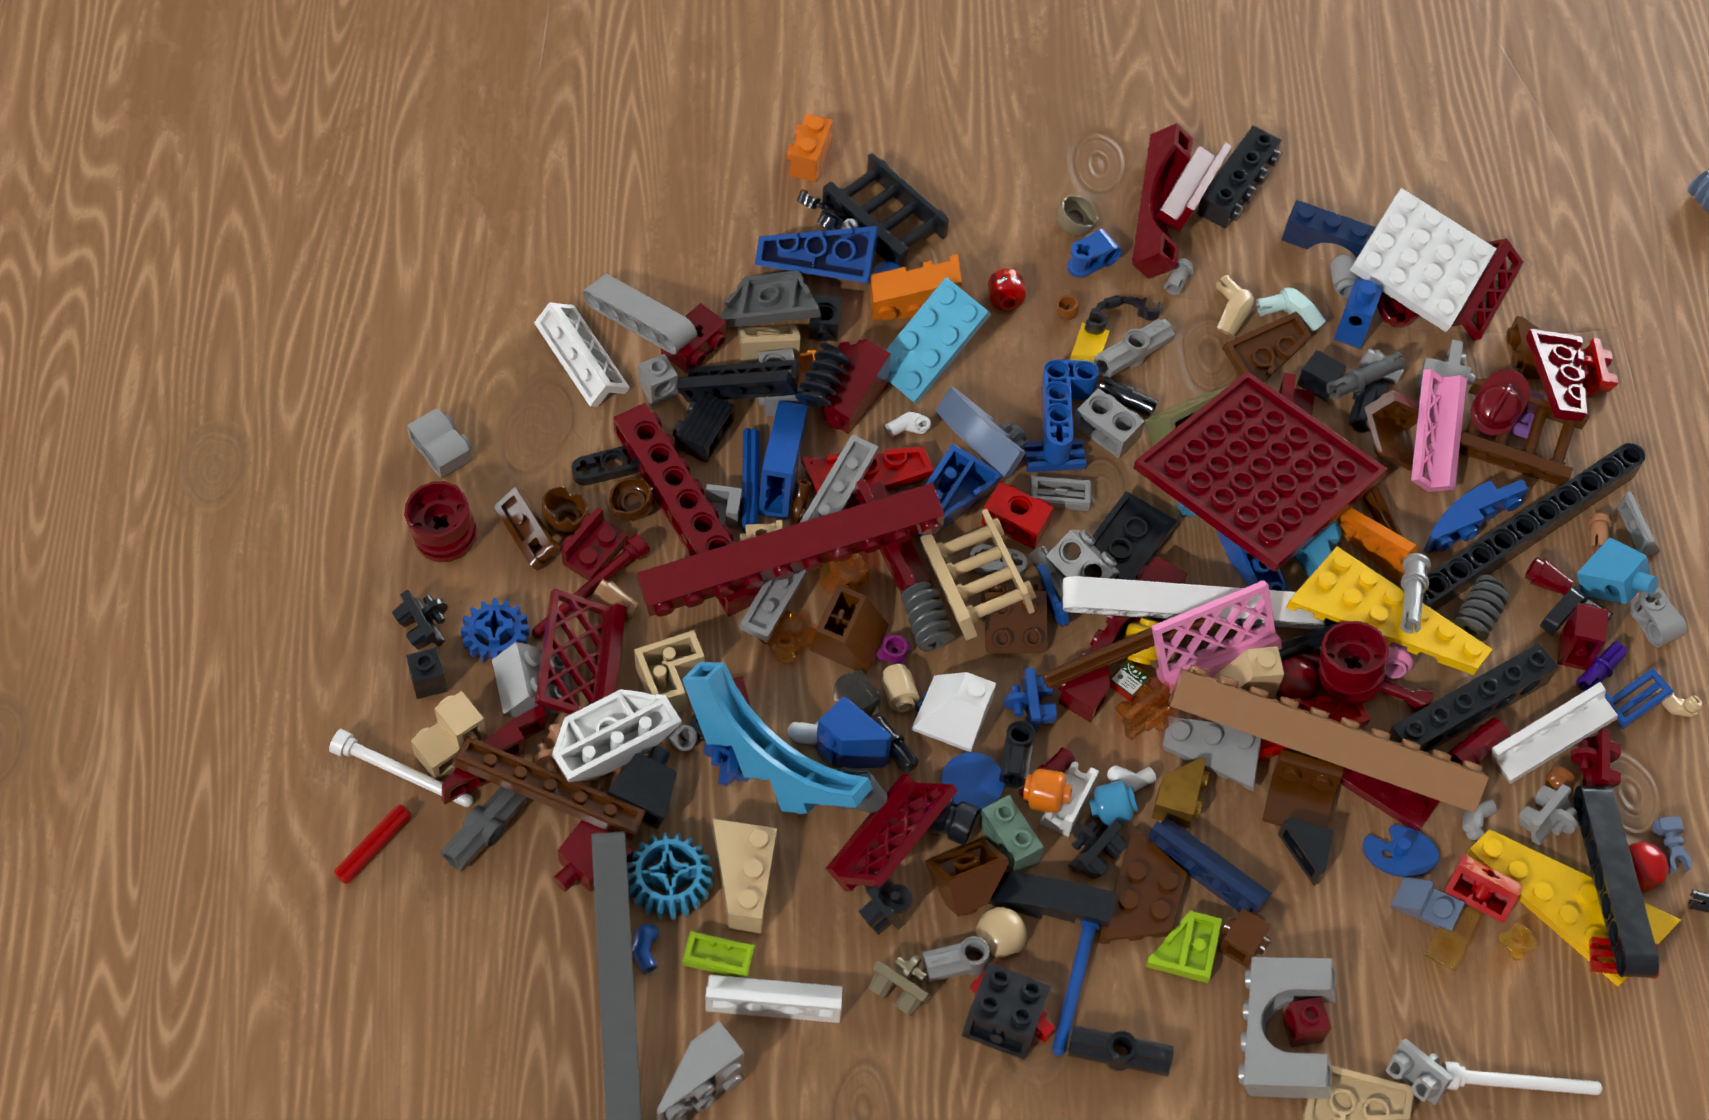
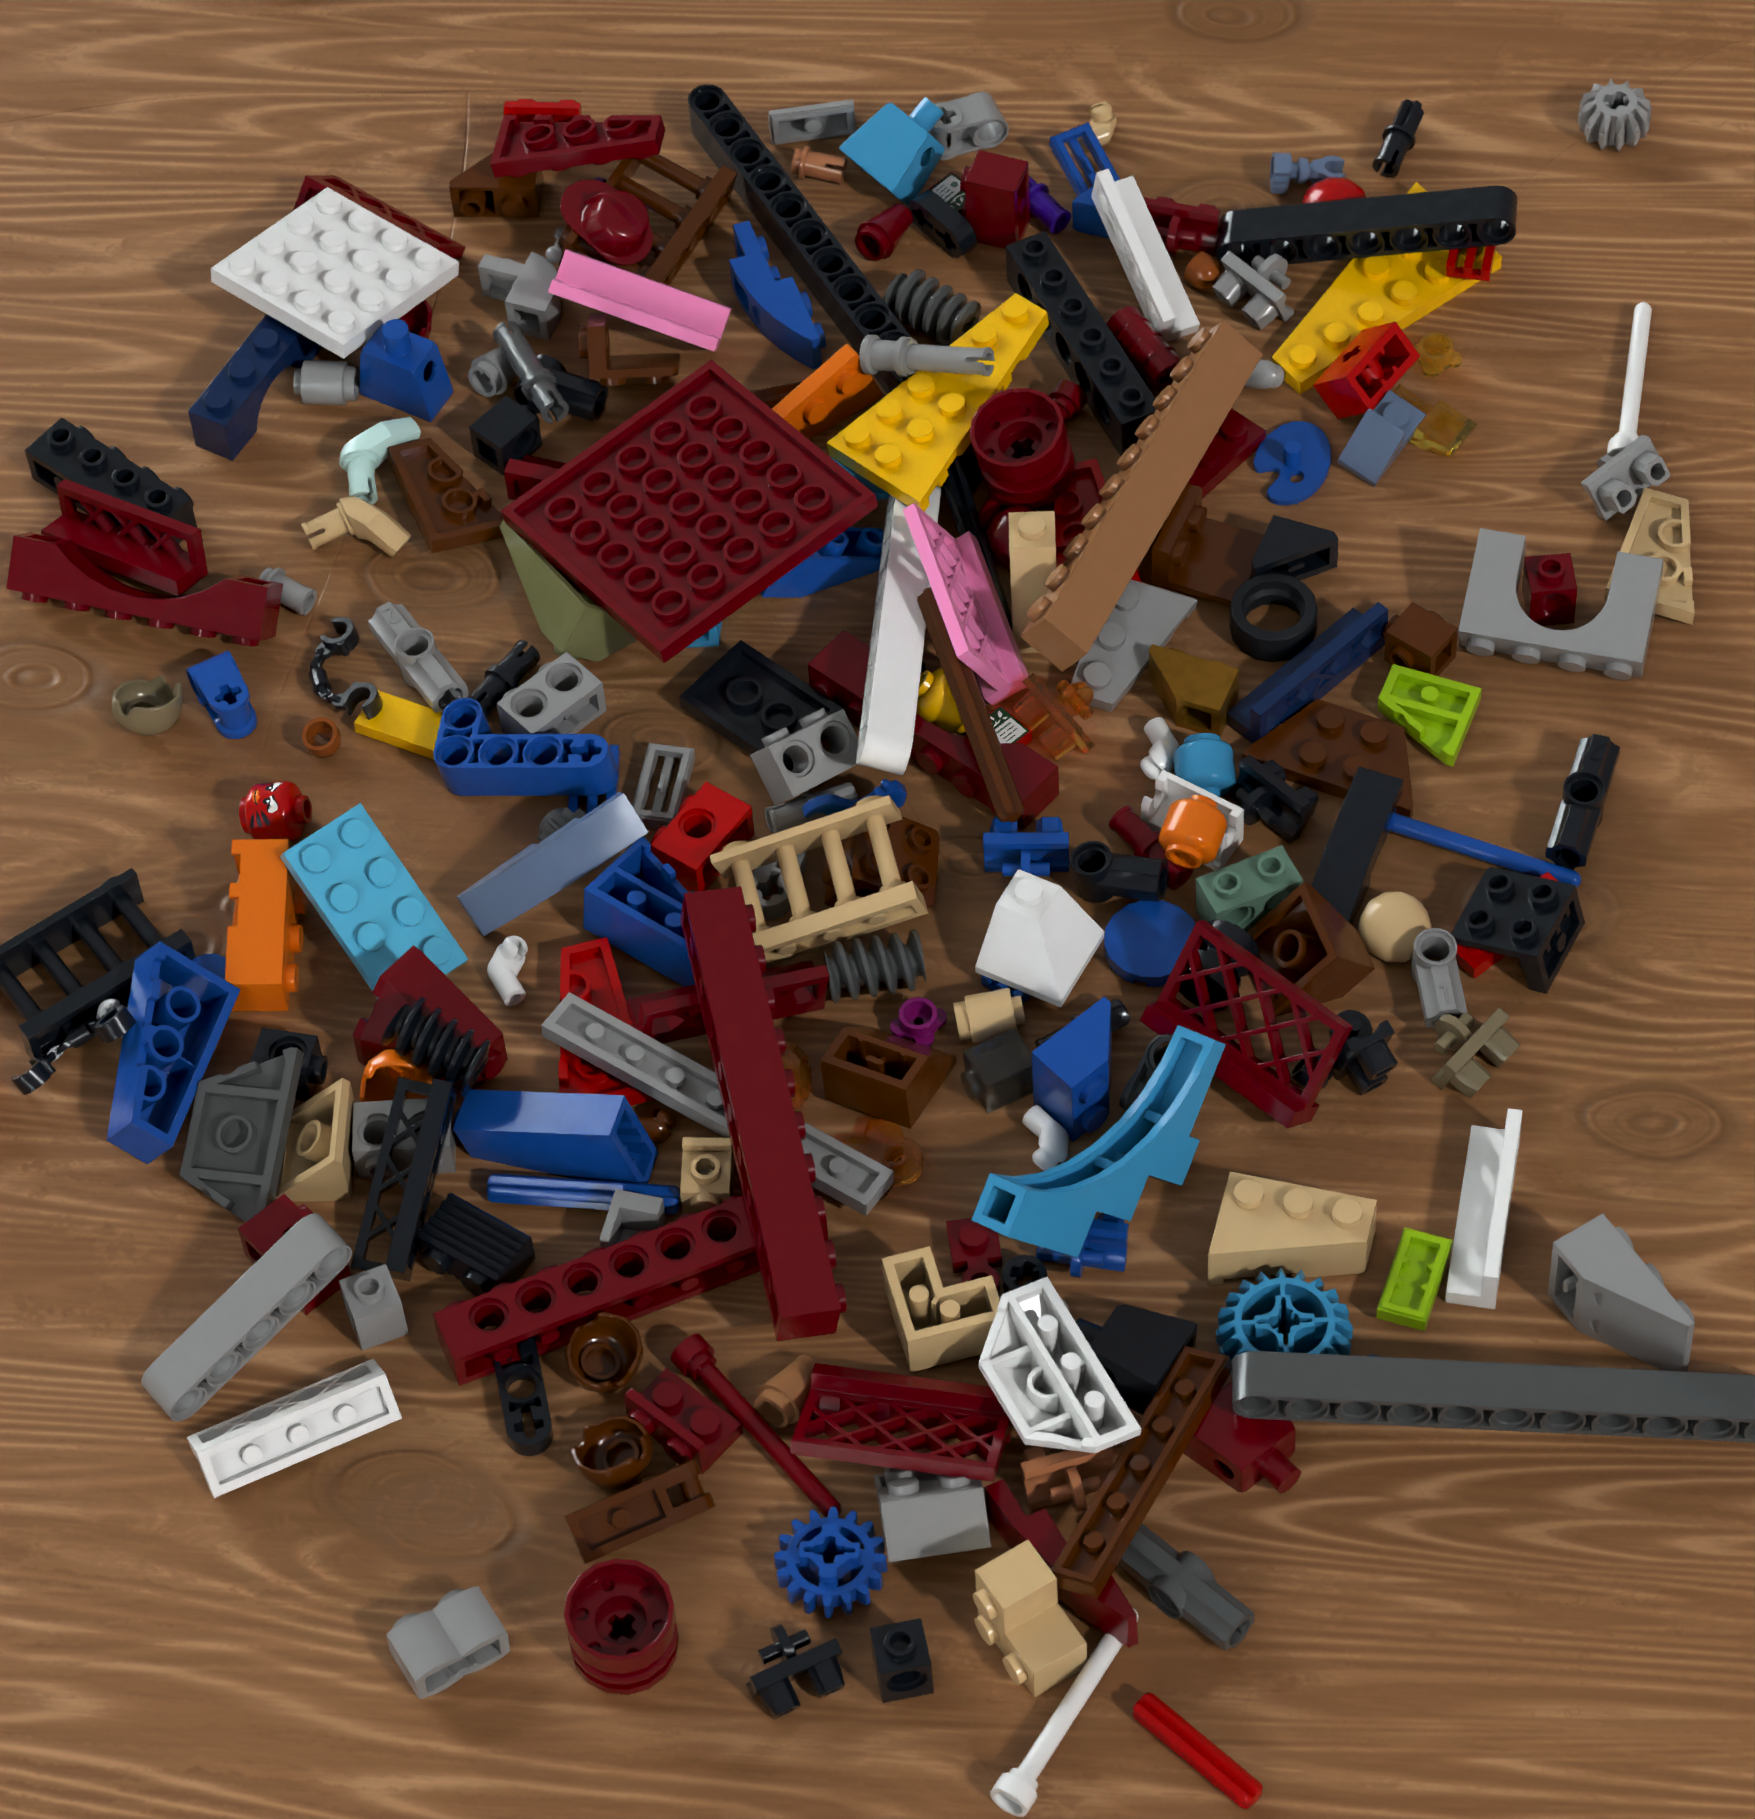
camera: 75 degrees left, 5 degrees down
(1264, 822) = (1279, 590): none -> black tyre

